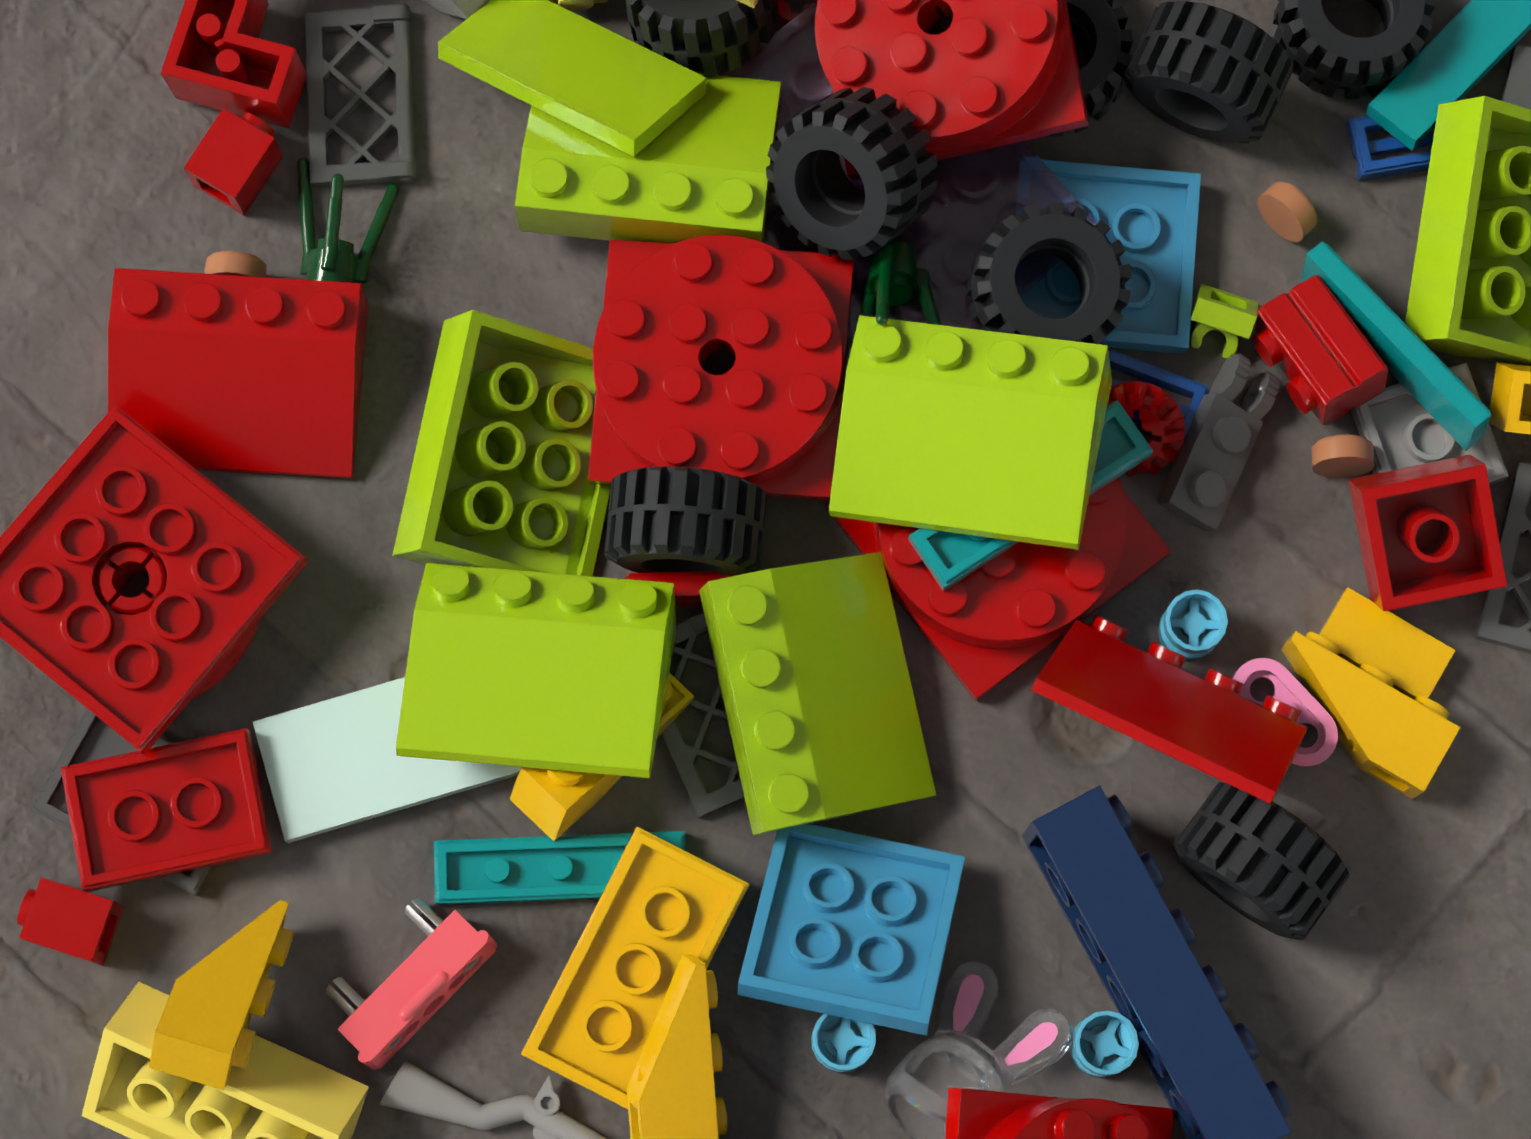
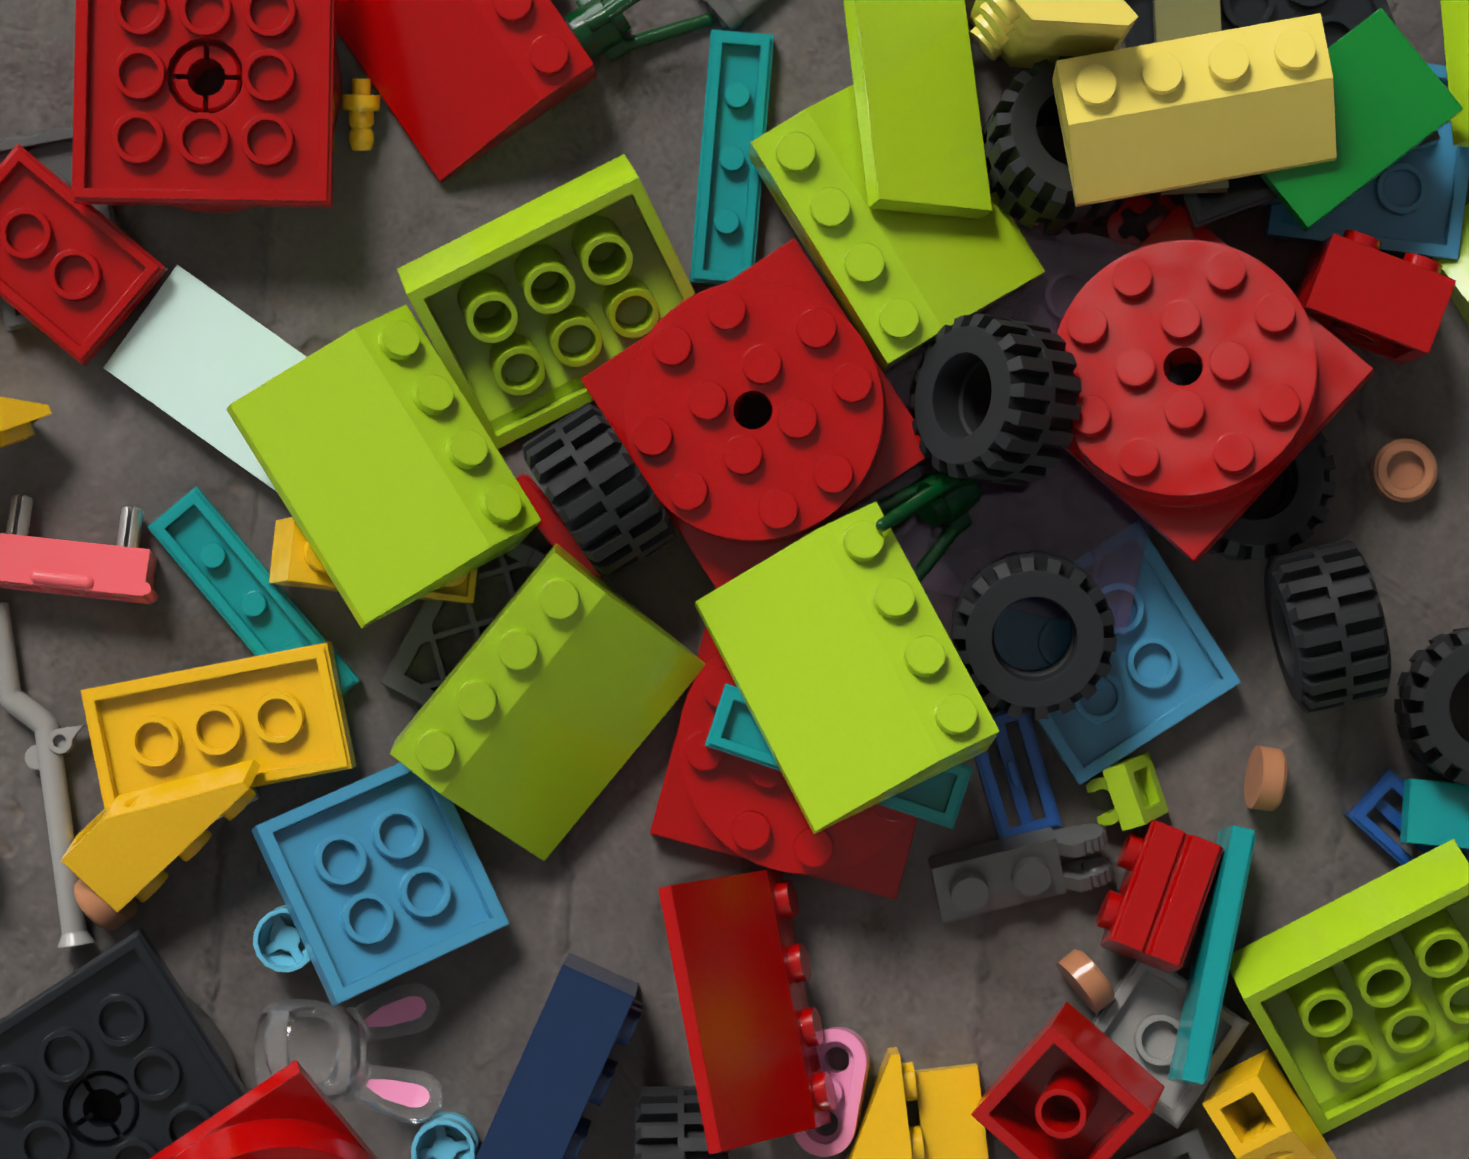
camera: 55 degrees right, 10 degrees up
(247, 491) = (361, 114): none -> yellow piece
(517, 259) = (727, 178): none -> teal tile
(1158, 415) = (999, 805): red gear -> none
(1196, 614) = (849, 972): medium azure wheel -> none

